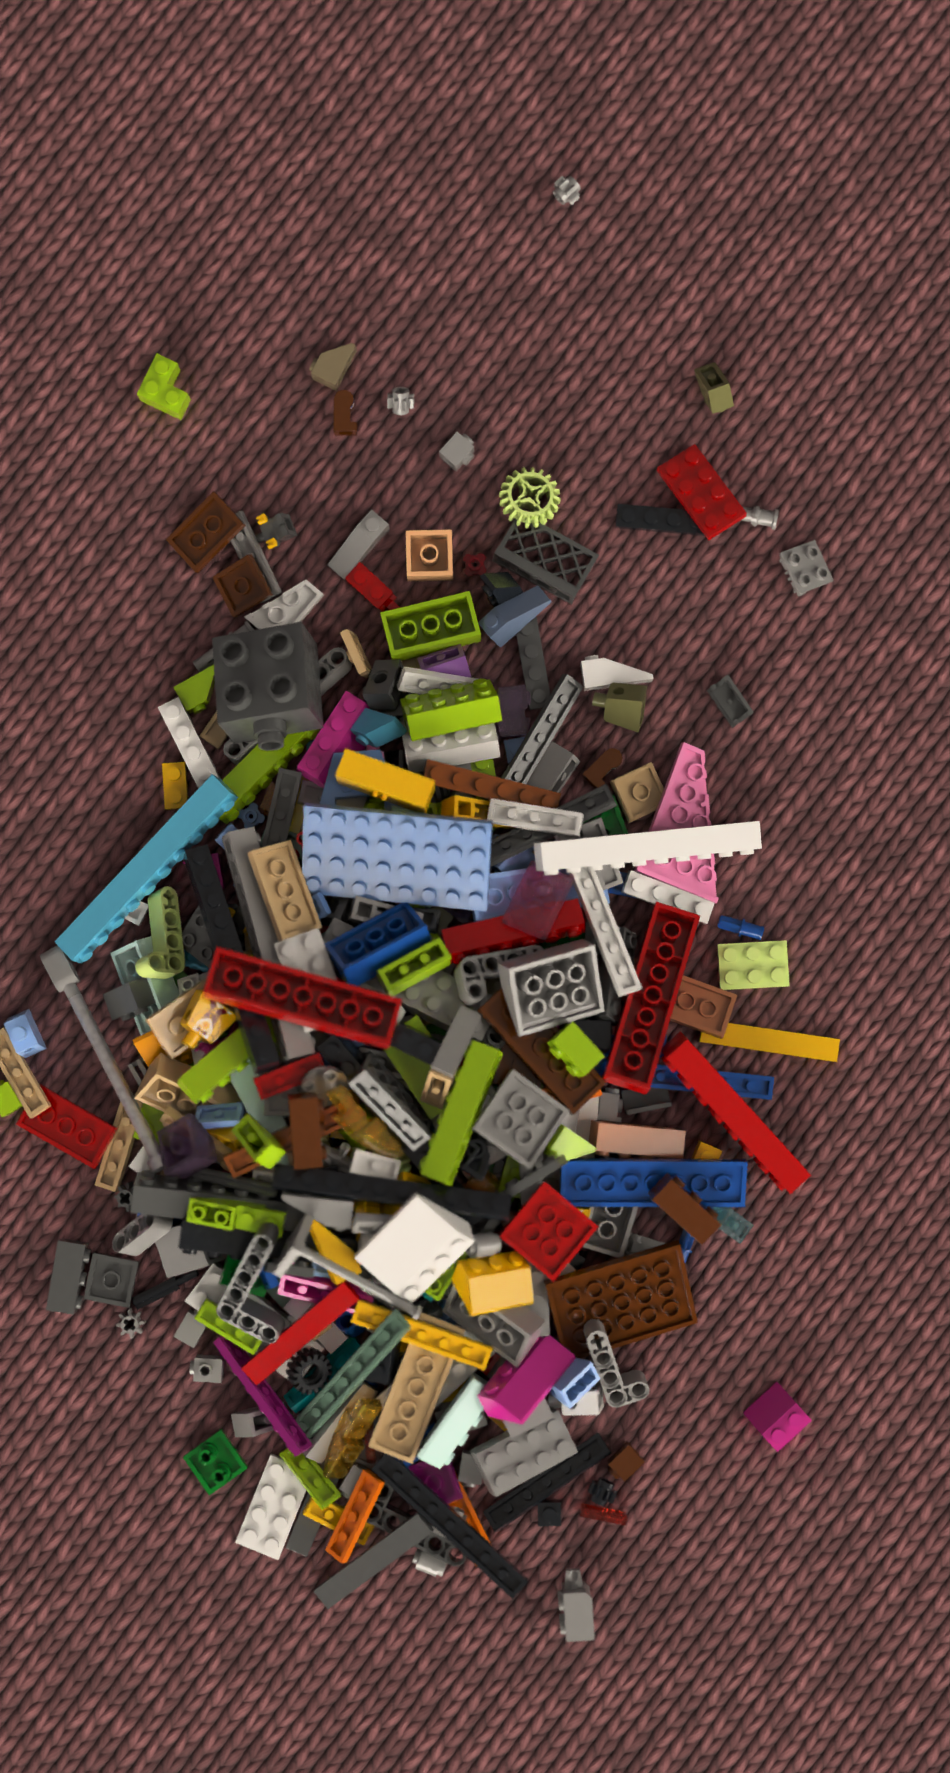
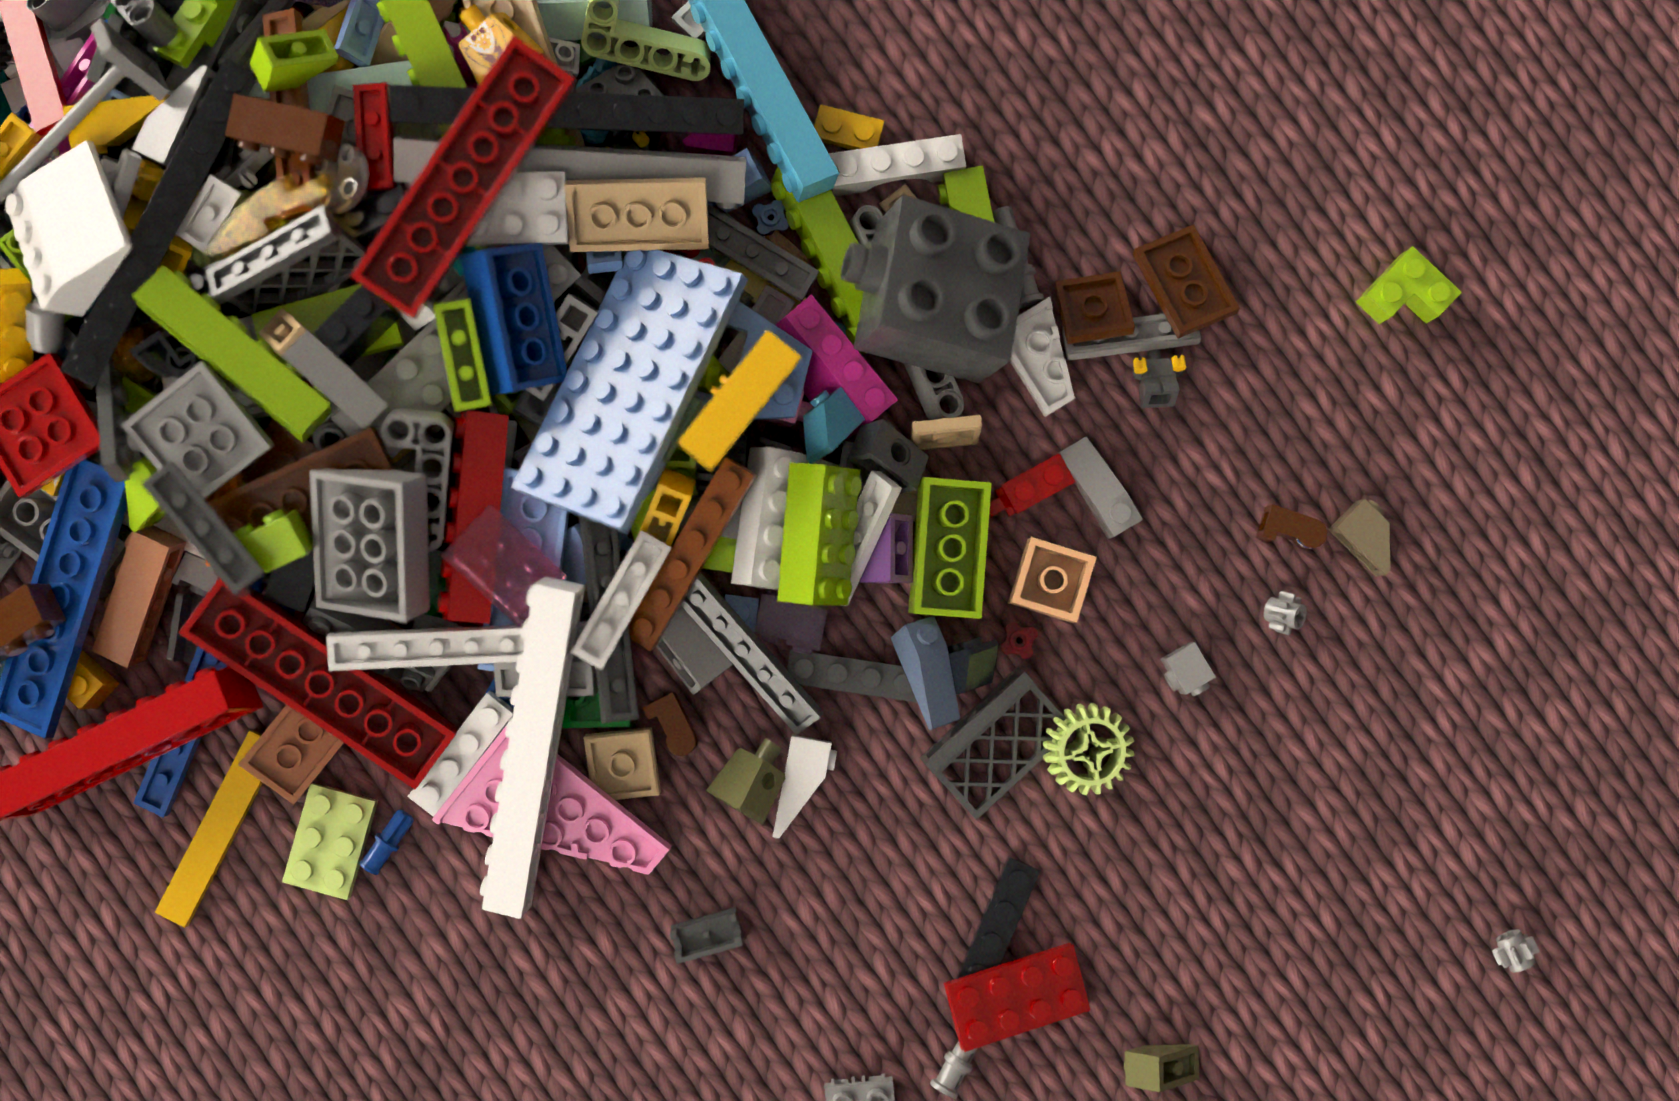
camera: 110 degrees right, 0 degrees up
(578, 1088) = (204, 529): none -> dark grey fence

